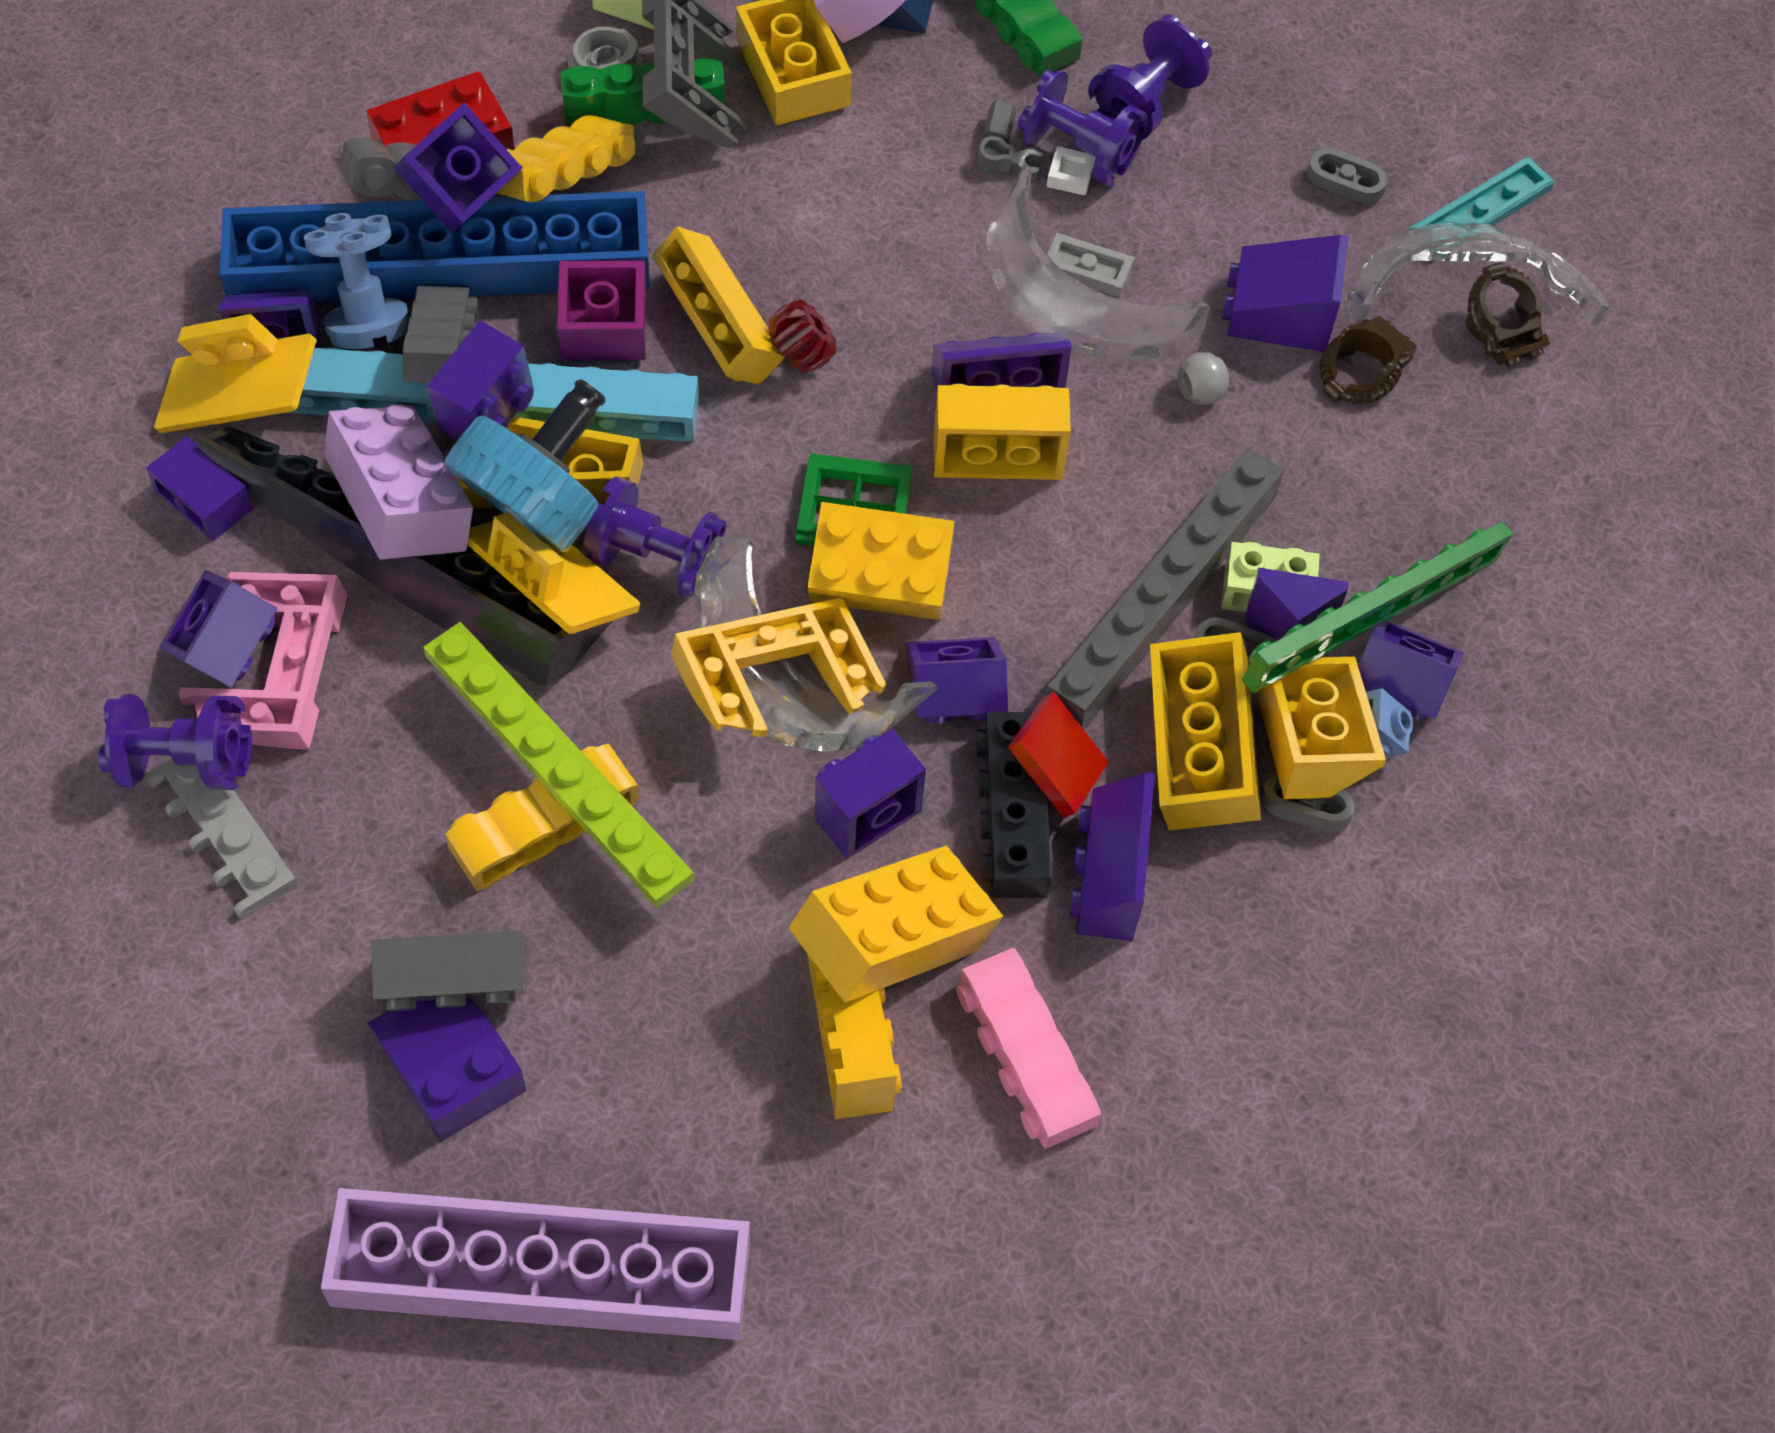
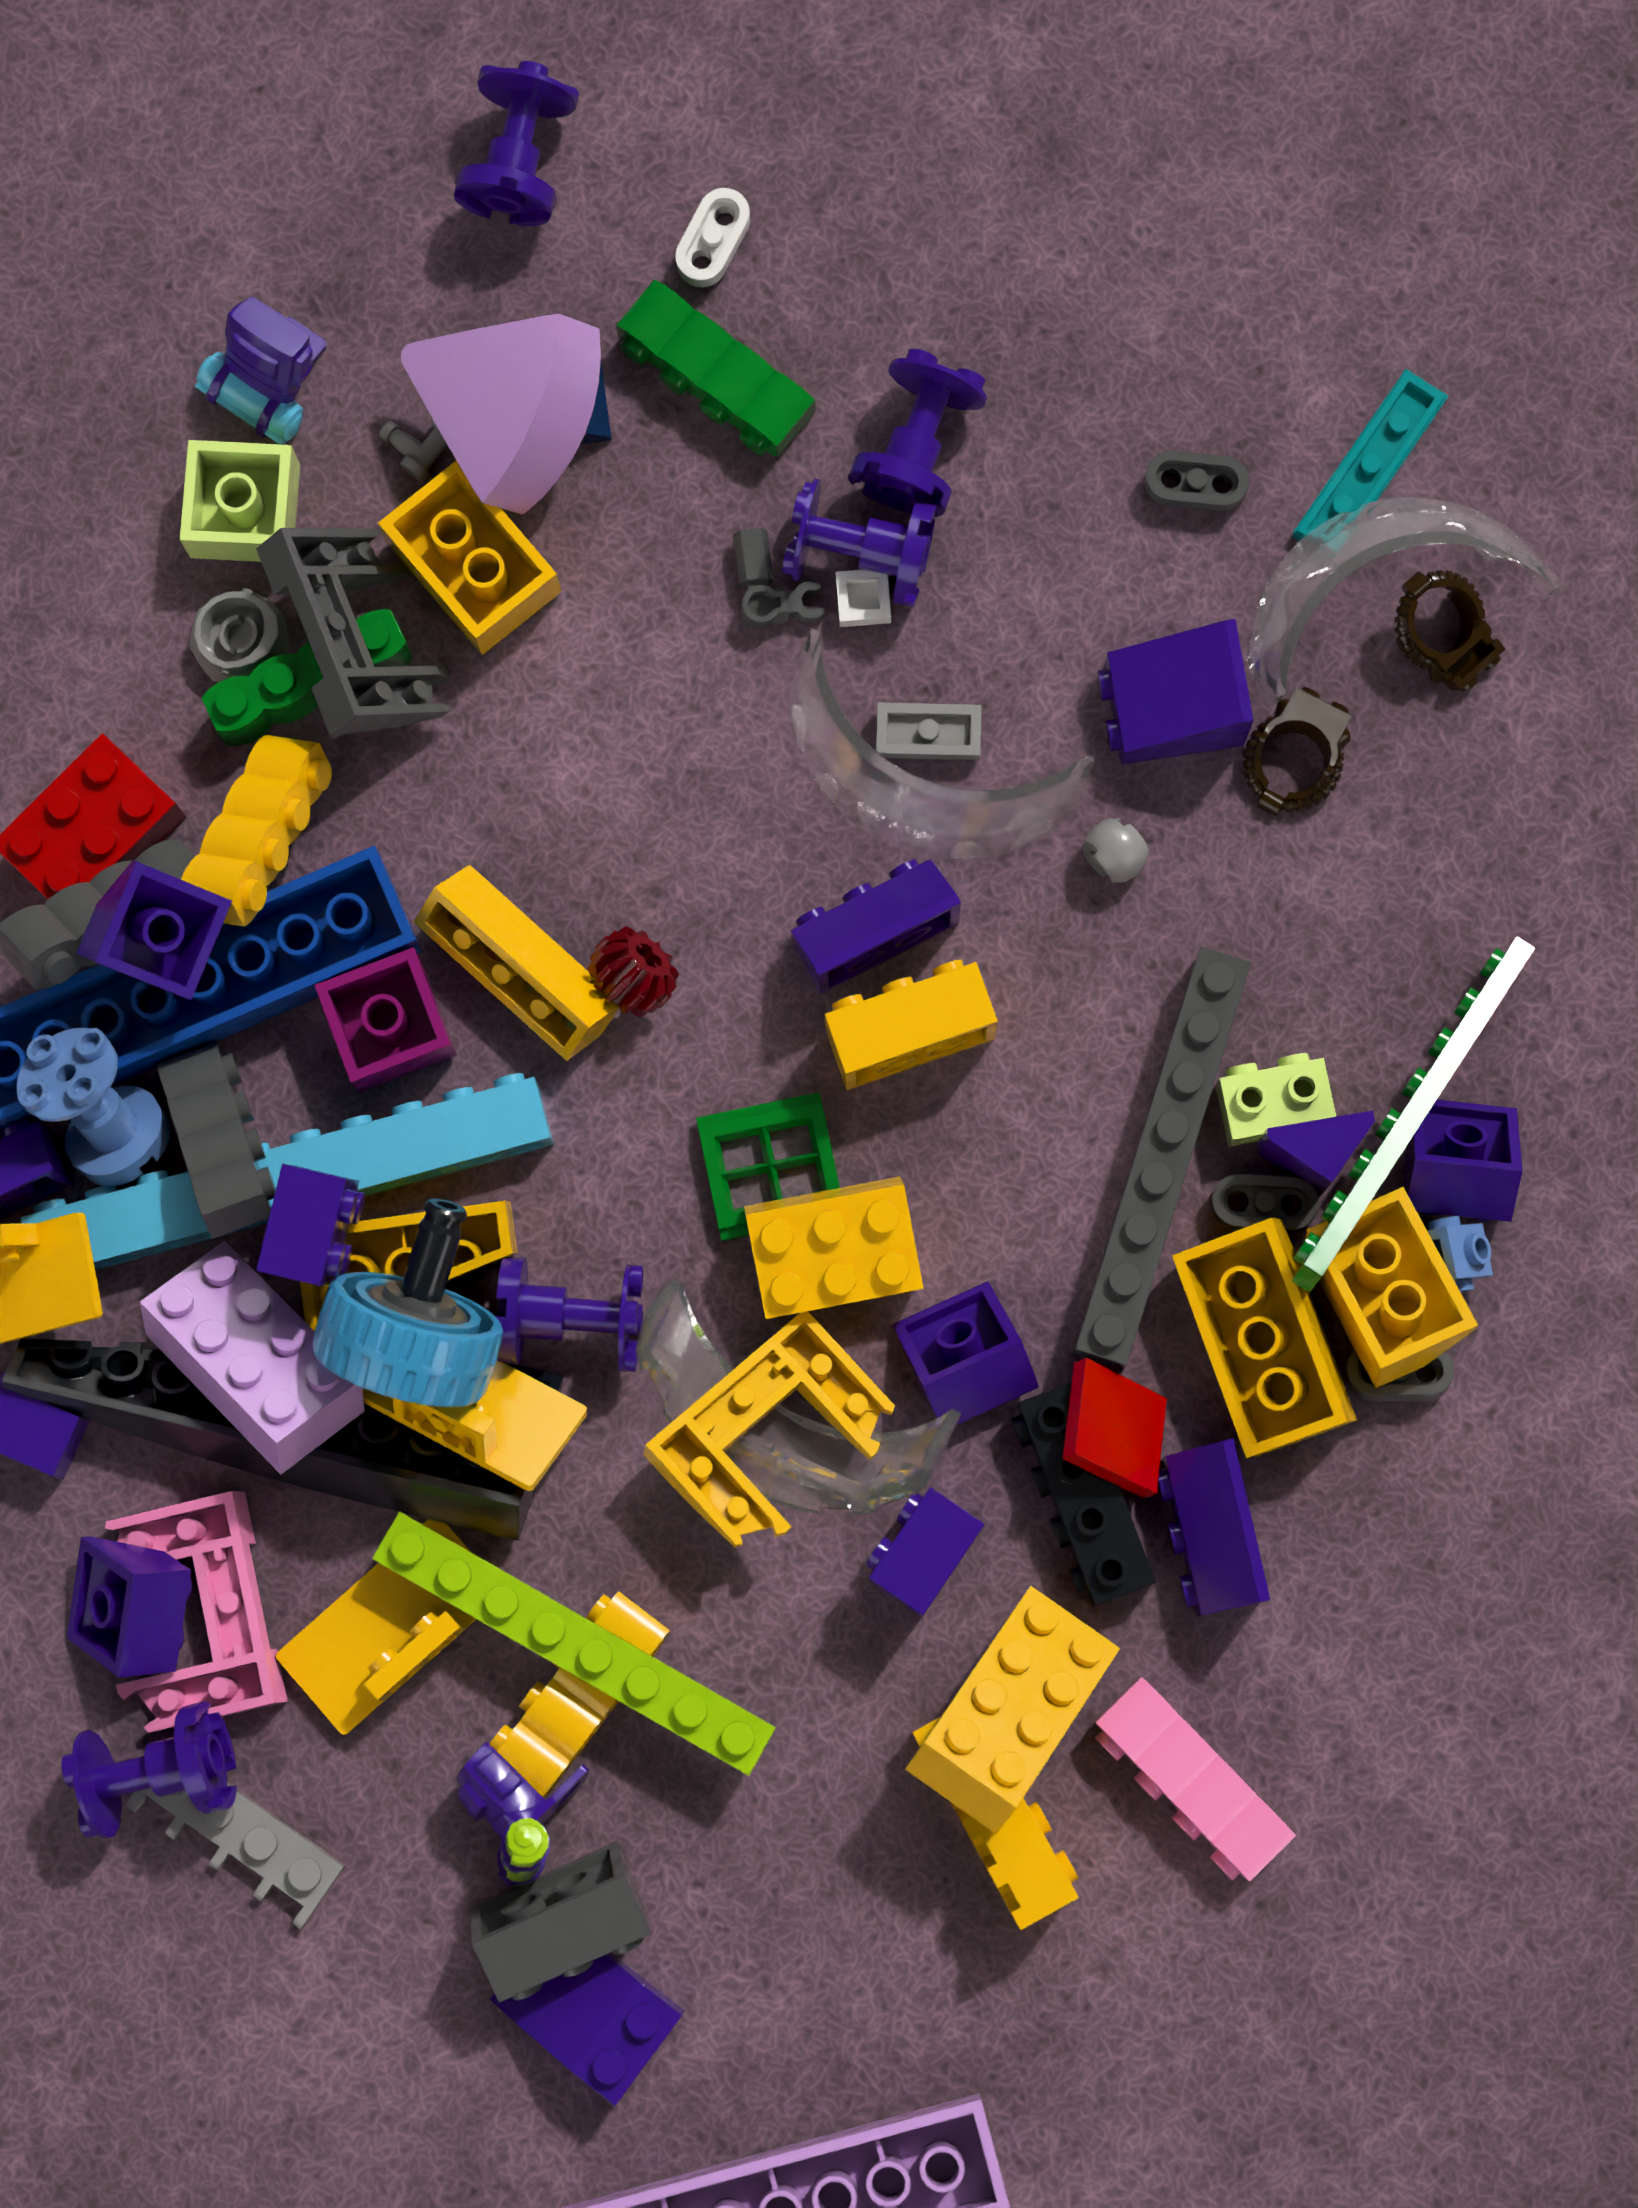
camera: 10 degrees left, 20 degrees up
(398, 726) = (371, 1642): none -> yellow bracket
(454, 871) = (515, 1811): none -> dark purple piece

